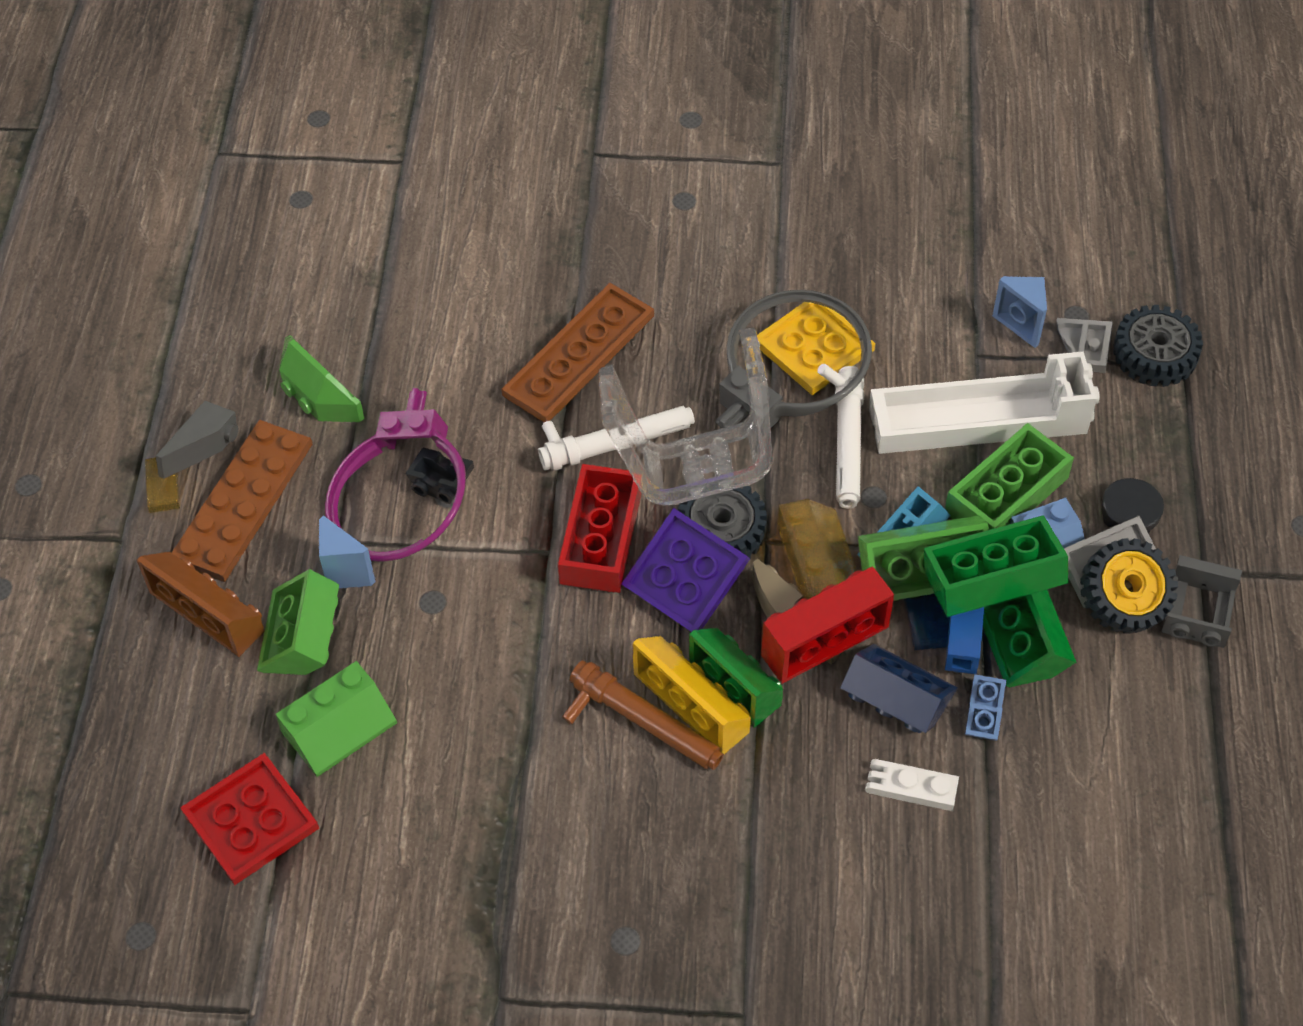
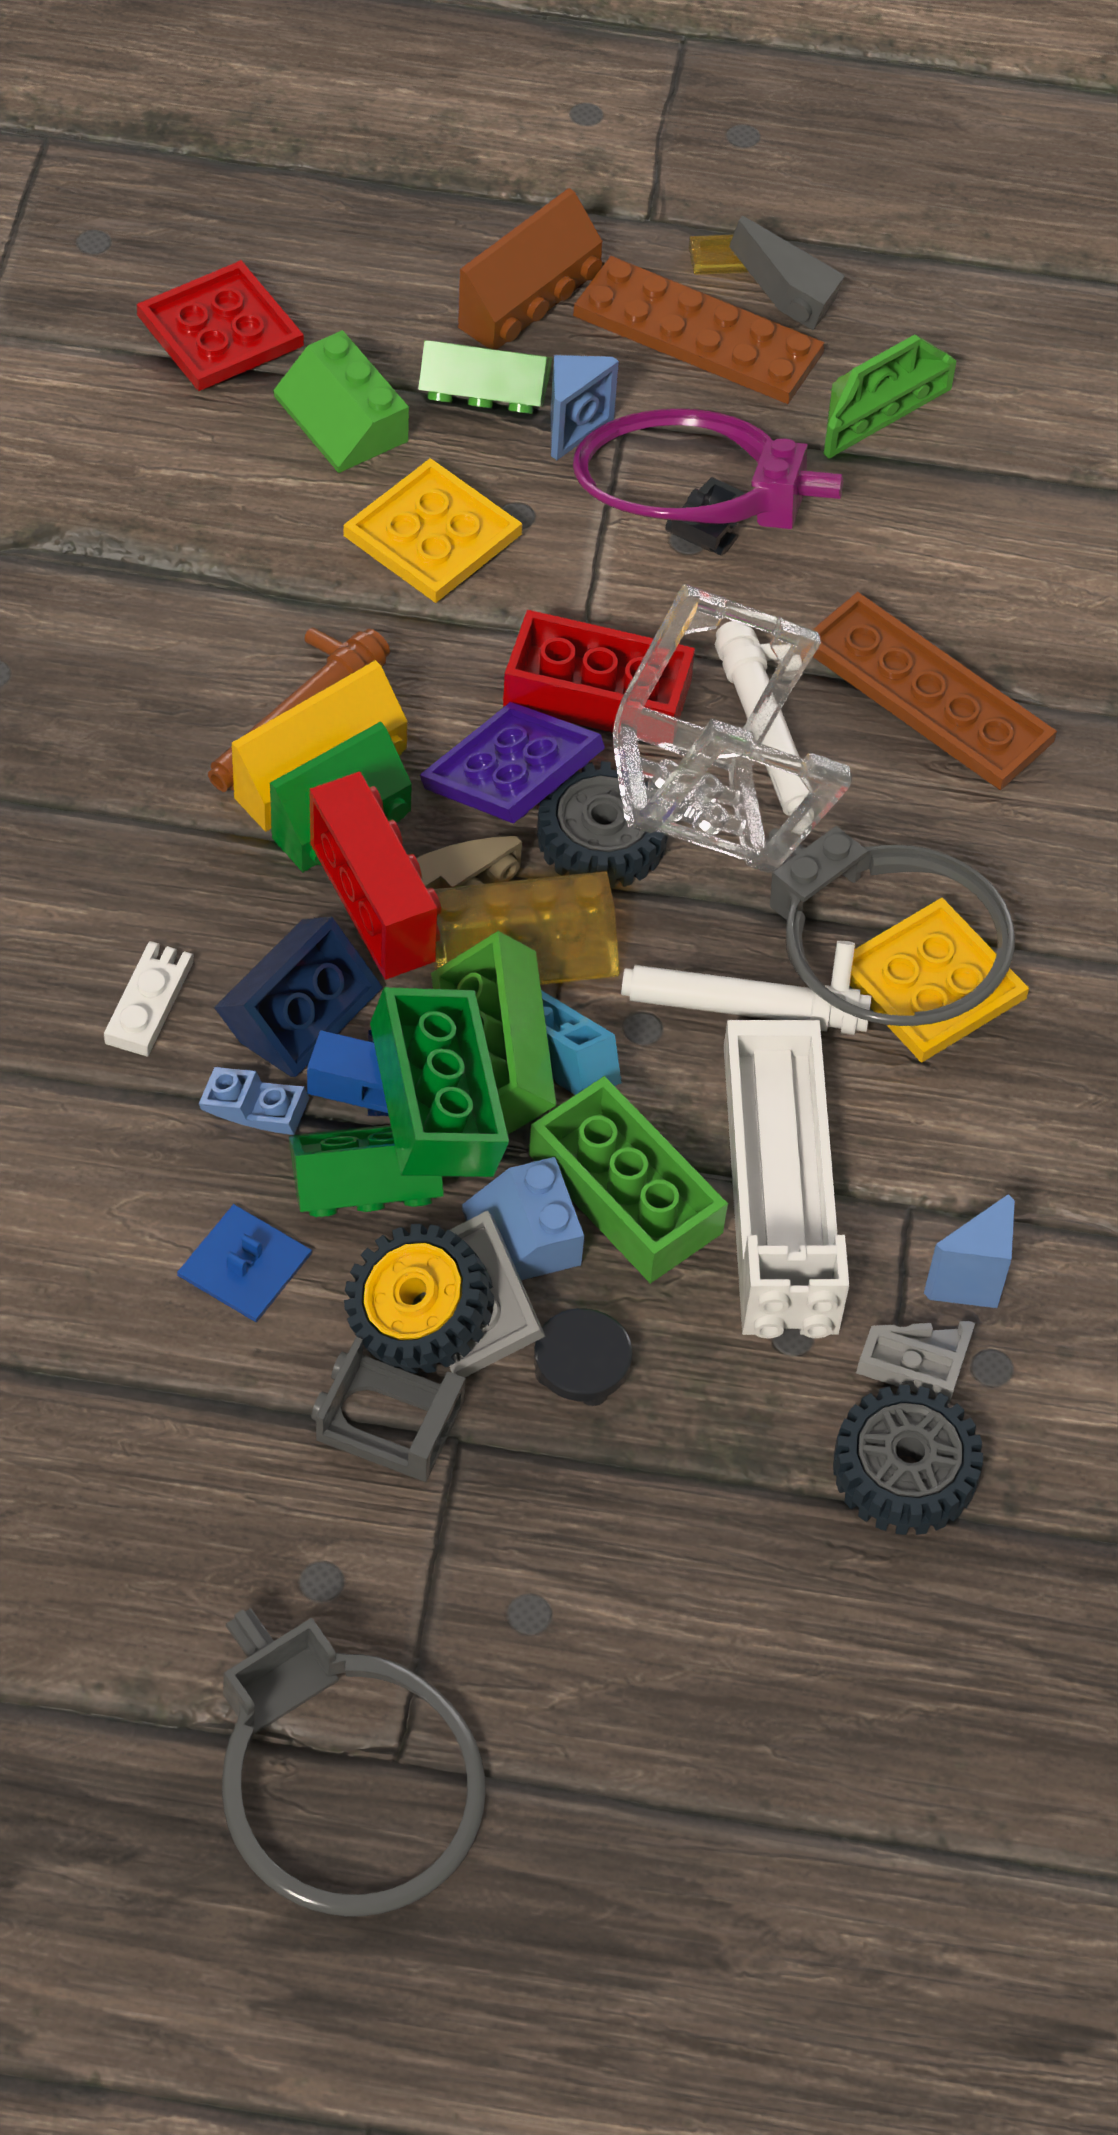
camera: 90 degrees right, 0 degrees up
(460, 648) = (432, 530): none -> yellow plate
(1108, 702) = (244, 1263): none -> blue piece

